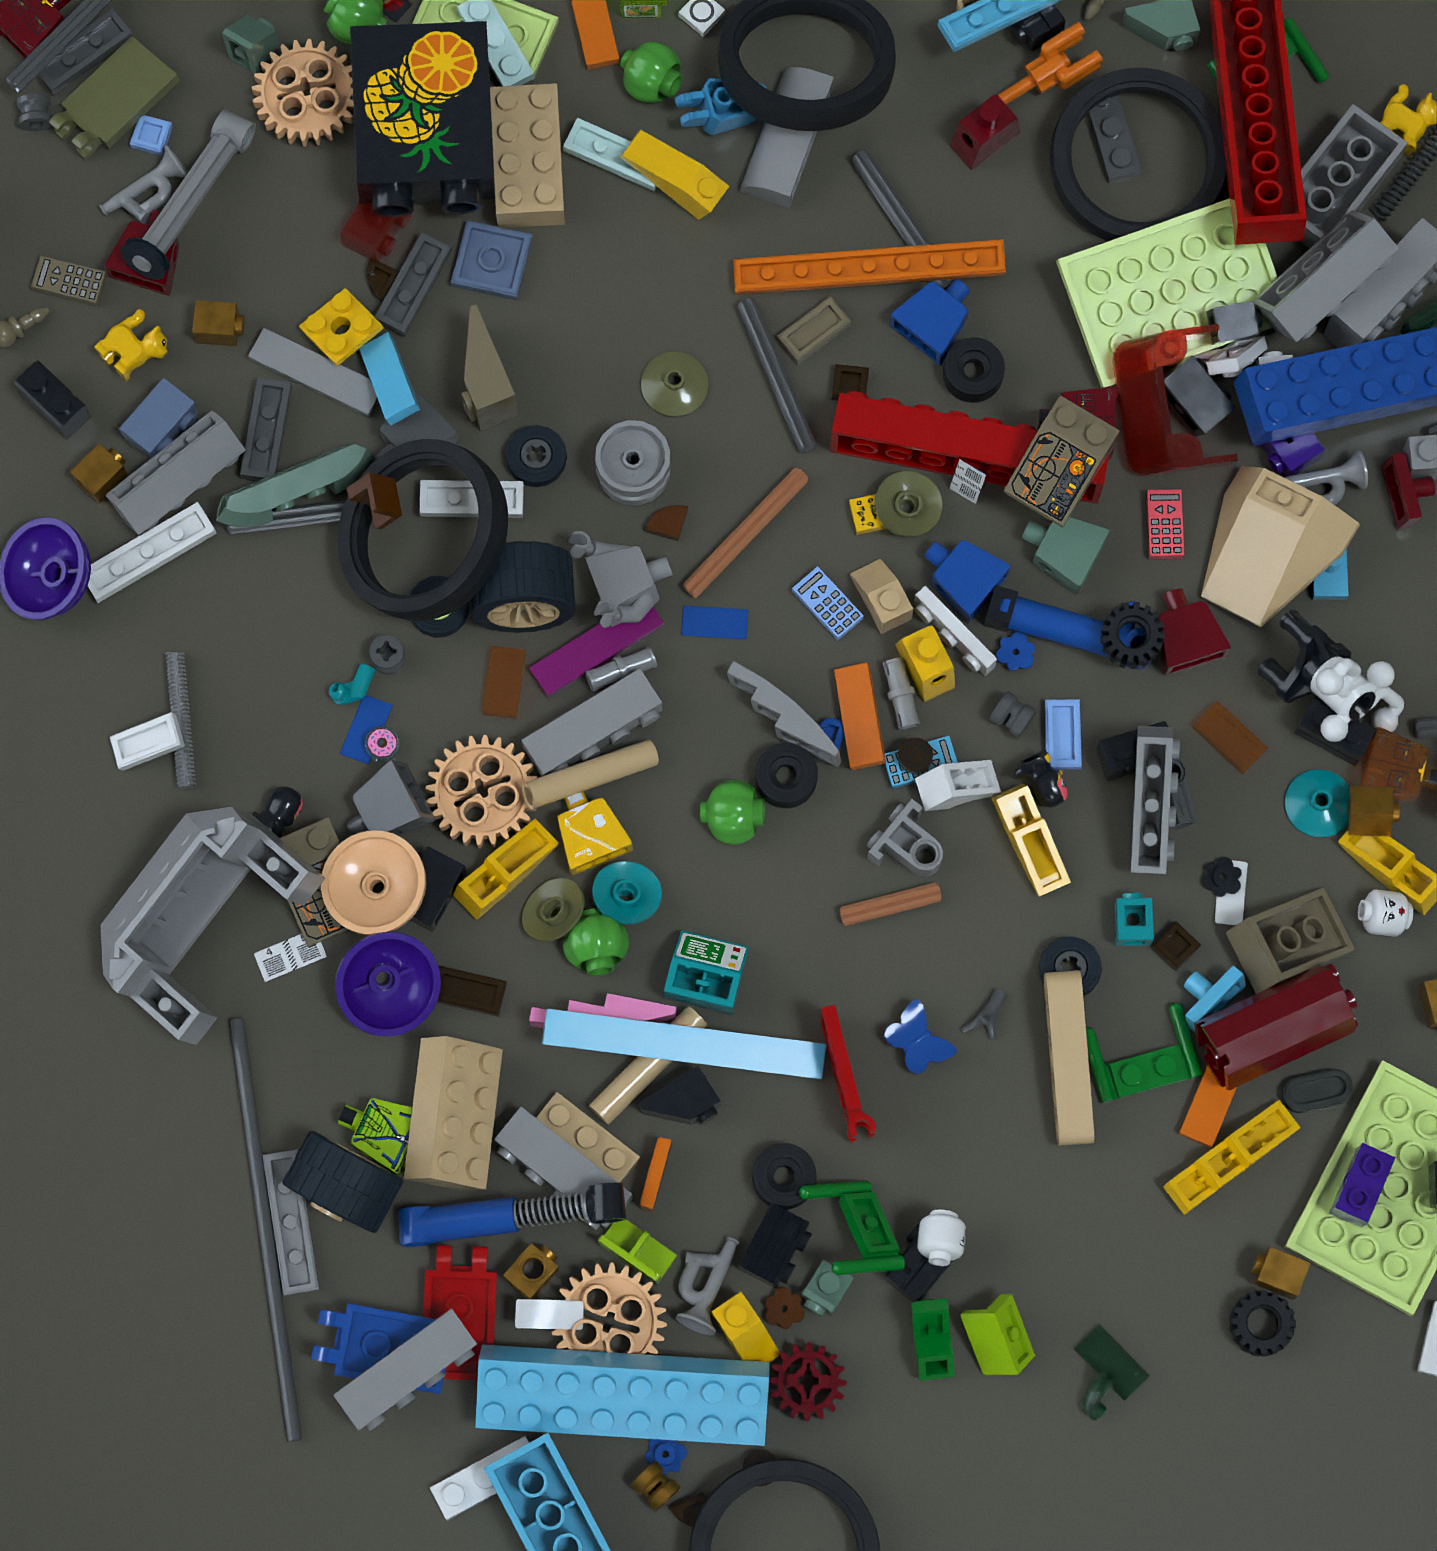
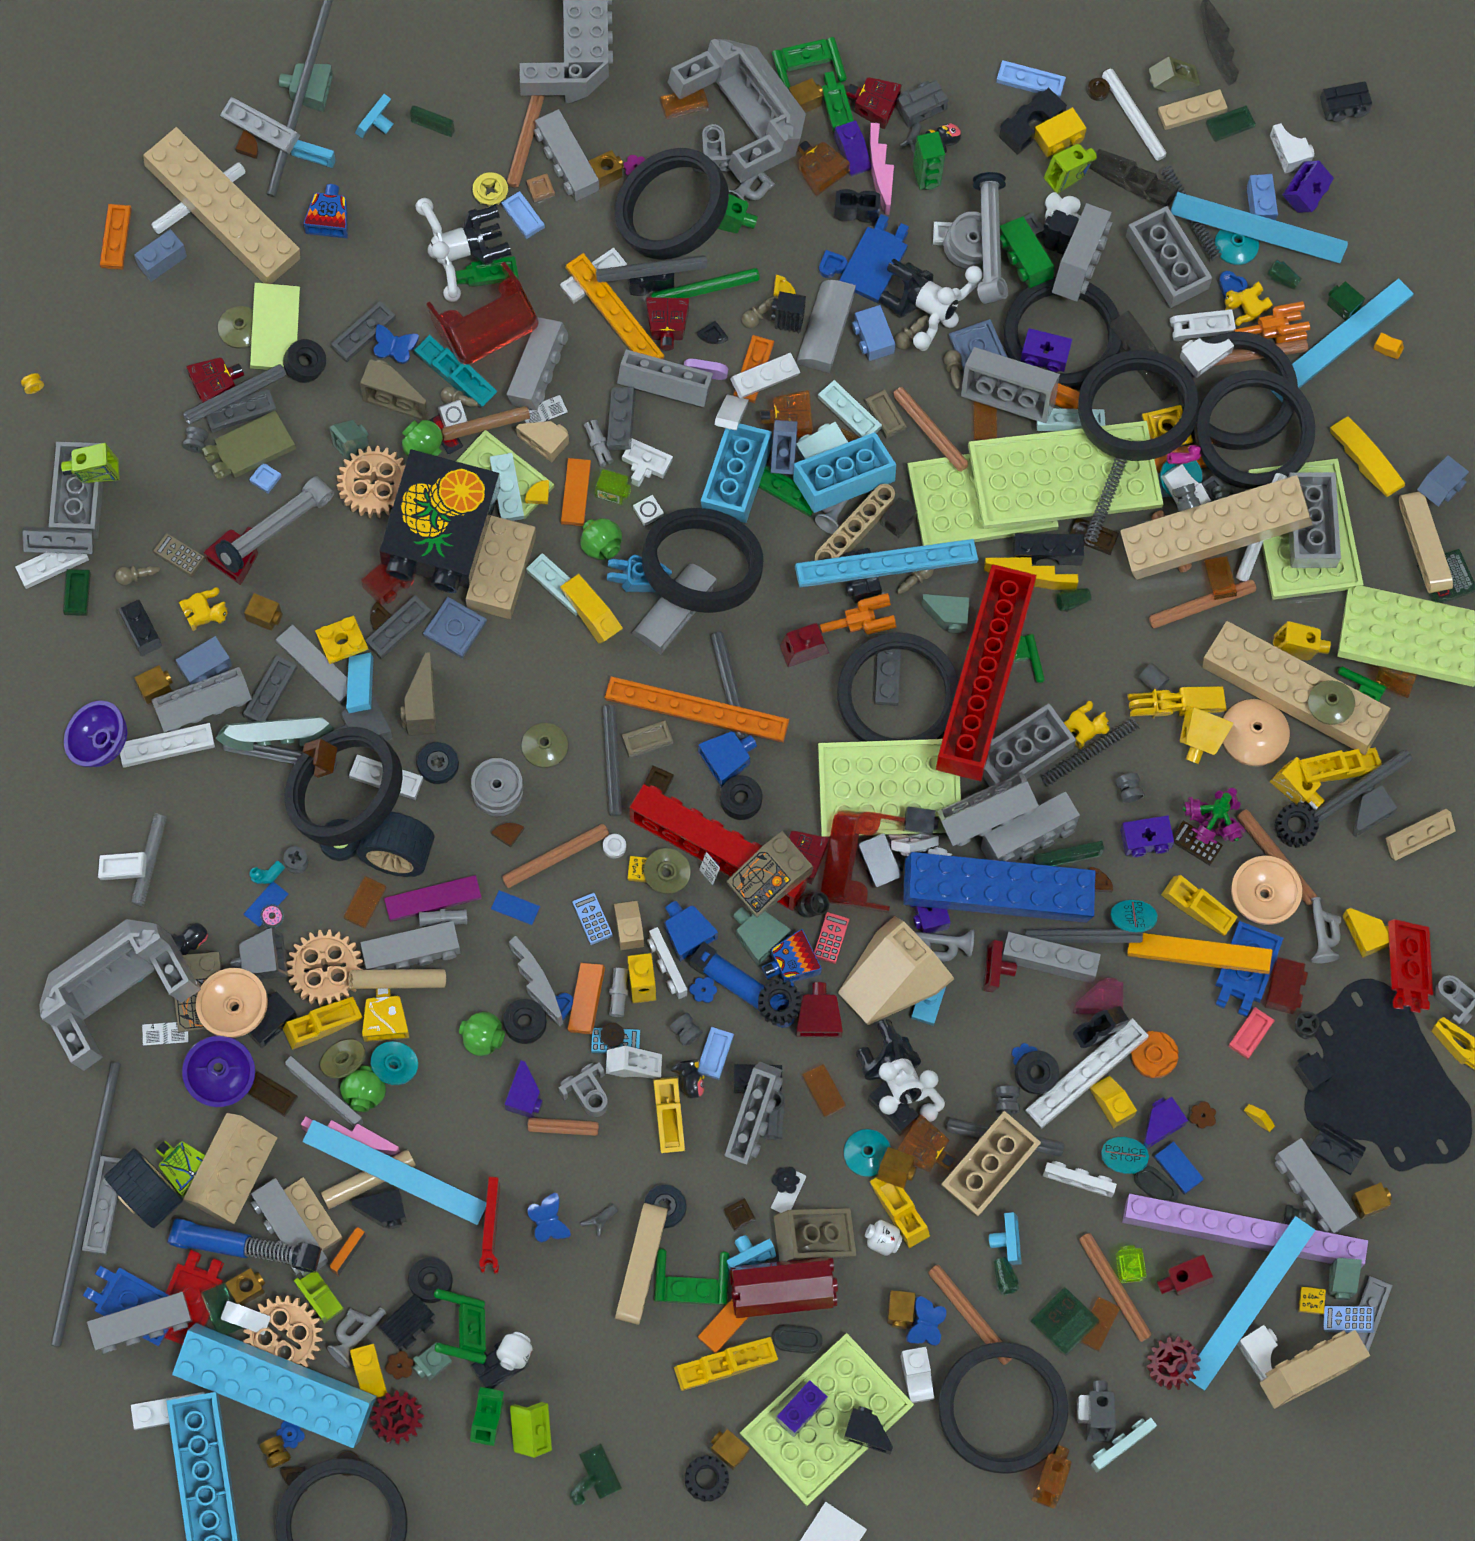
camera: 15 degrees right, 5 degrees down
(169, 167) = (270, 502): light grey piece -> none
(499, 1306) = (215, 1301): none -> clear green tile
(543, 36) = (538, 493): none -> yellow tile
(543, 965) = (323, 1092): none -> light grey tile
(620, 578) = (462, 859): light grey torso -> none
(706, 972) = (426, 1131): teal slope -> none
(821, 493) = (614, 846): none -> white tile
(821, 875) = (524, 1093): none -> dark purple slope
(1125, 570) = (793, 959): none -> torso
(1126, 485) = (813, 904): none -> pearl dark grey wheel
(1140, 907) = (713, 1198): teal brick -> none

